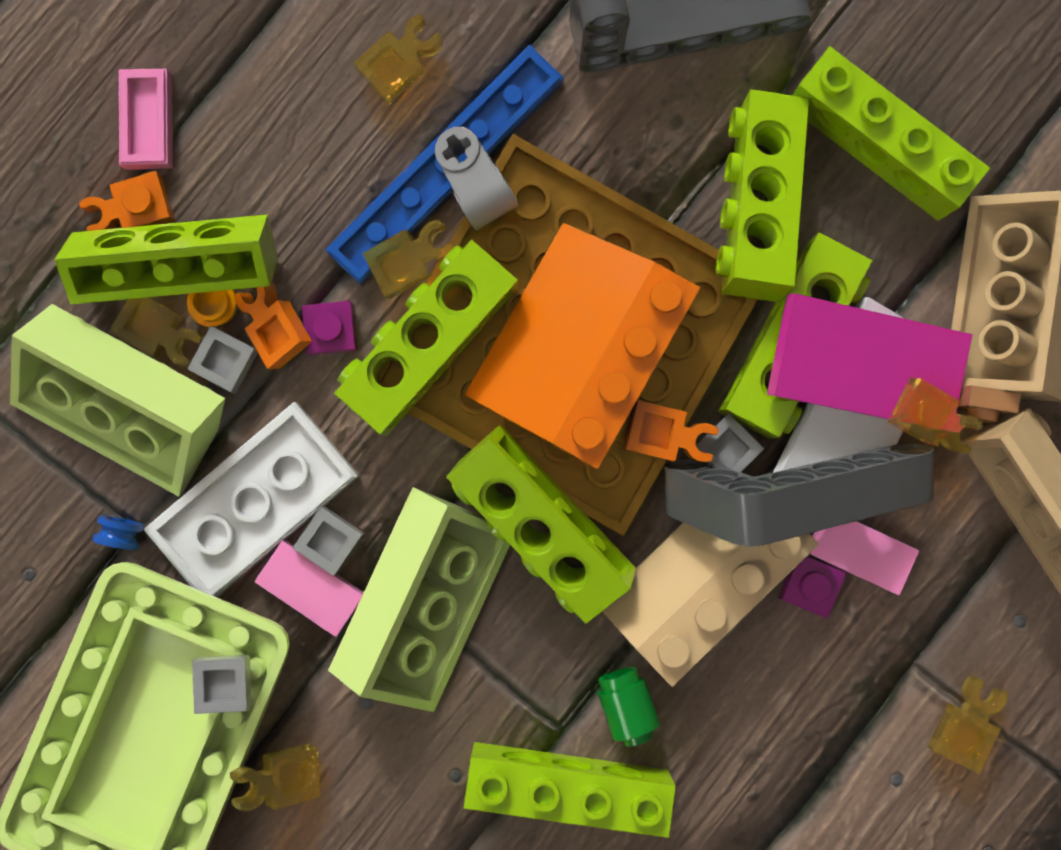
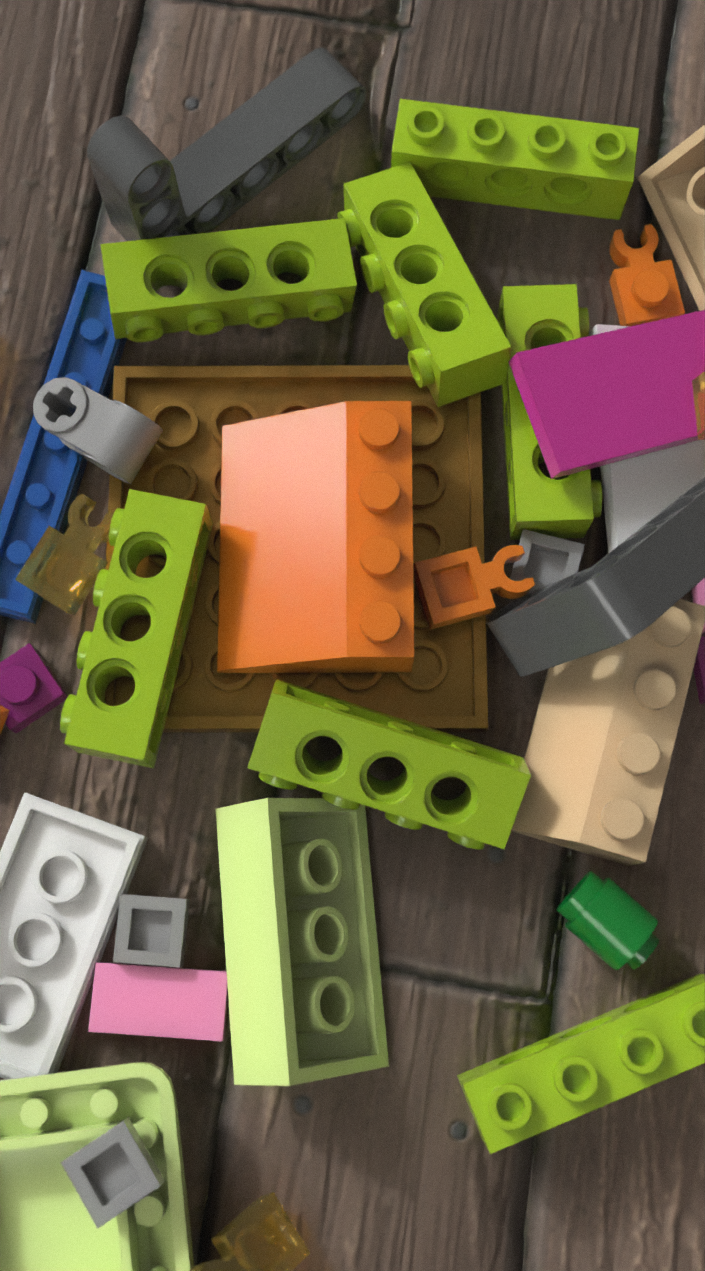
camera: 30 degrees left, 10 degrees down
(701, 125) = (251, 255): none -> lime brick
(921, 285) = (641, 287): none -> orange plate

